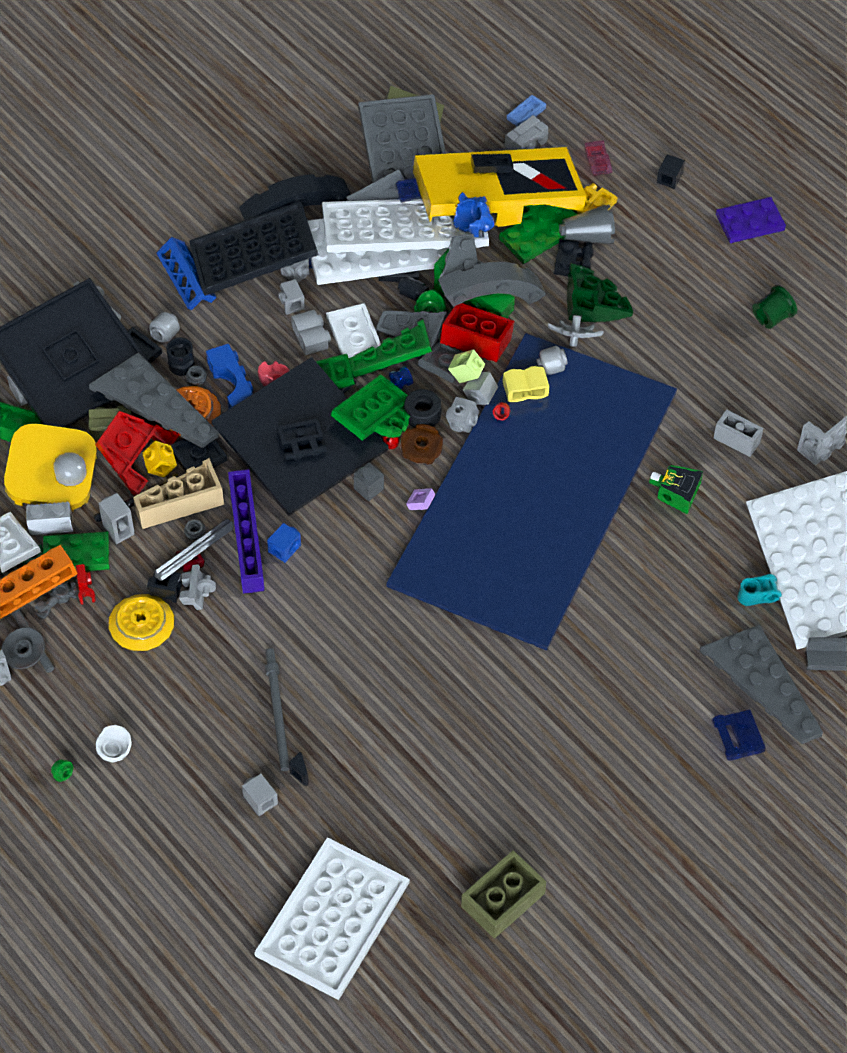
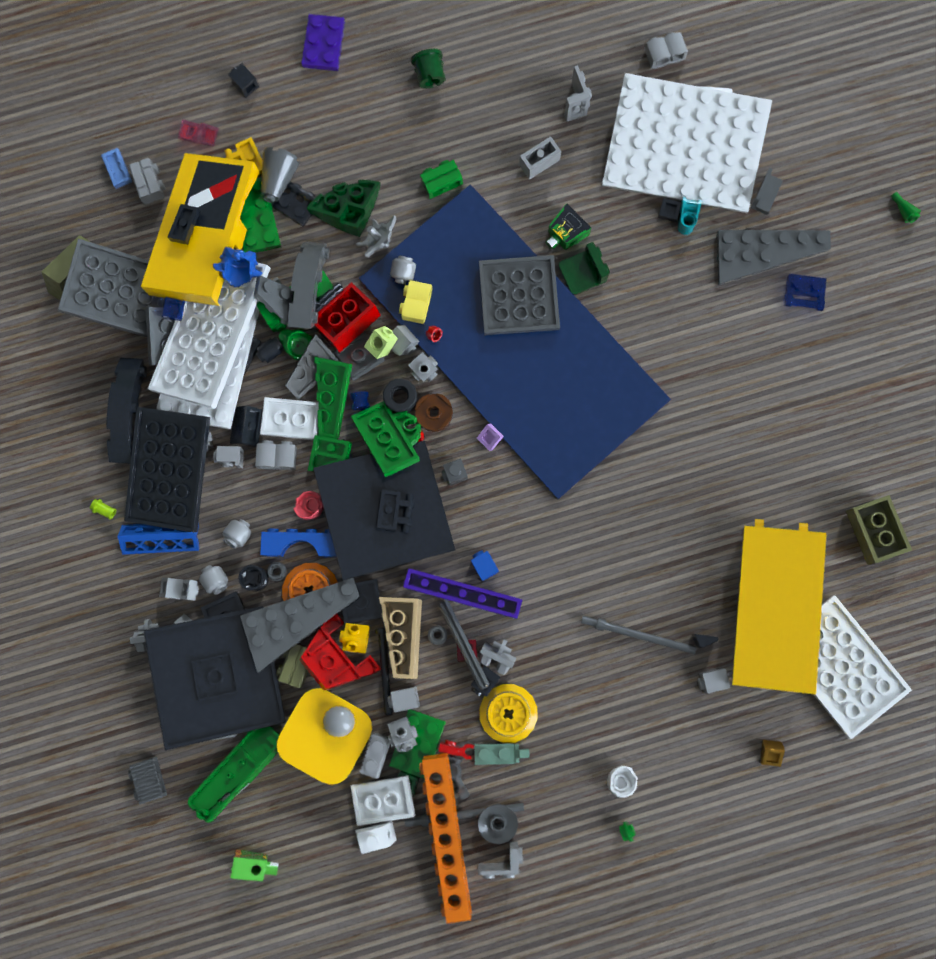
camera: 60 degrees left, 25 degrees up
(79, 524) = (402, 734): none -> light grey brick
(95, 627) = (499, 753): none -> sand green hinge
(142, 304) = (178, 589): none -> light grey brick
(192, 217) = (102, 509): none -> lime pin
(205, 884) = (772, 753): none -> pearl gold slope
(218, 329) = (236, 533): none -> light grey head
(329, 300) = (246, 426): none -> black panel
(364, 815) = (779, 608): none -> yellow piece
(488, 307) = (328, 296): none -> black axle
(582, 467) = (519, 295): none -> dark grey plate
(643, 518) = (584, 270): none -> dark green bracket
(667, 361) = (441, 179): none -> green brick
(753, 568) = (669, 210): none -> black plate

